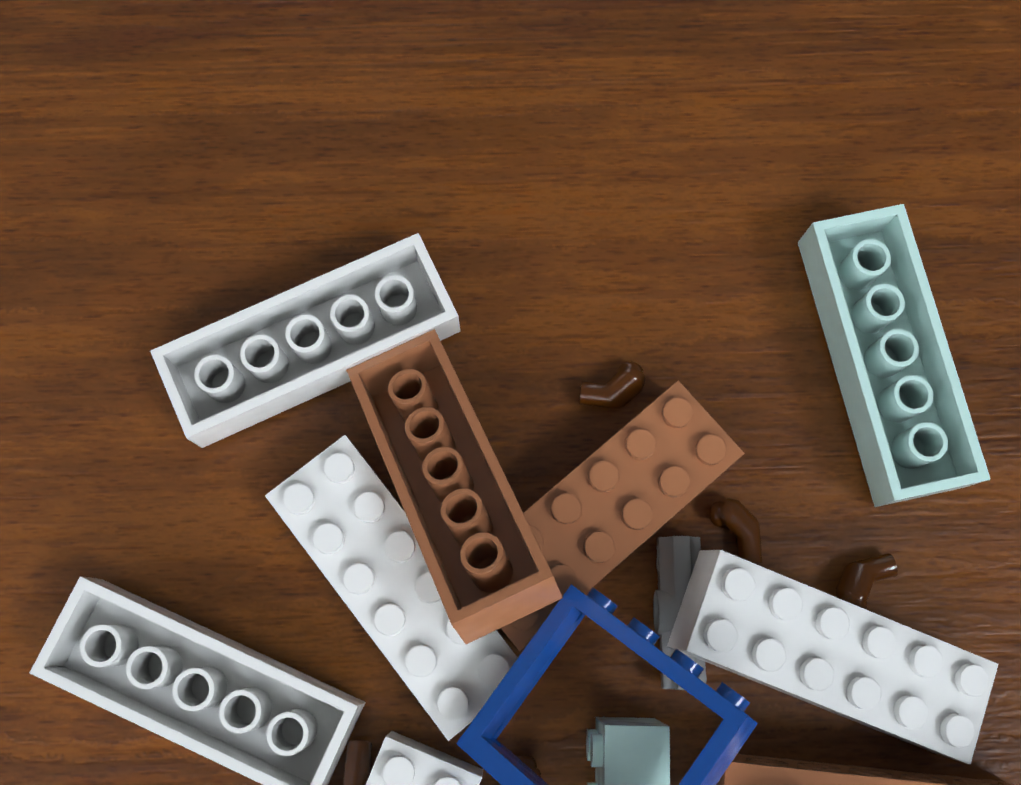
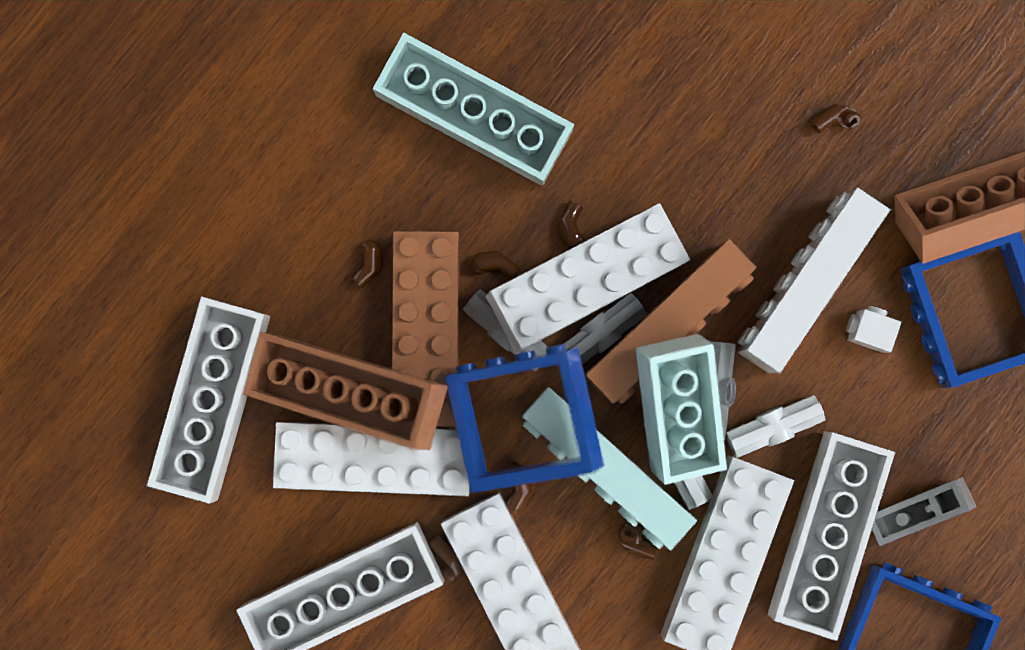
camera: 50 degrees left, 10 degrees up
(792, 732) = (607, 328): none -> light grey piece

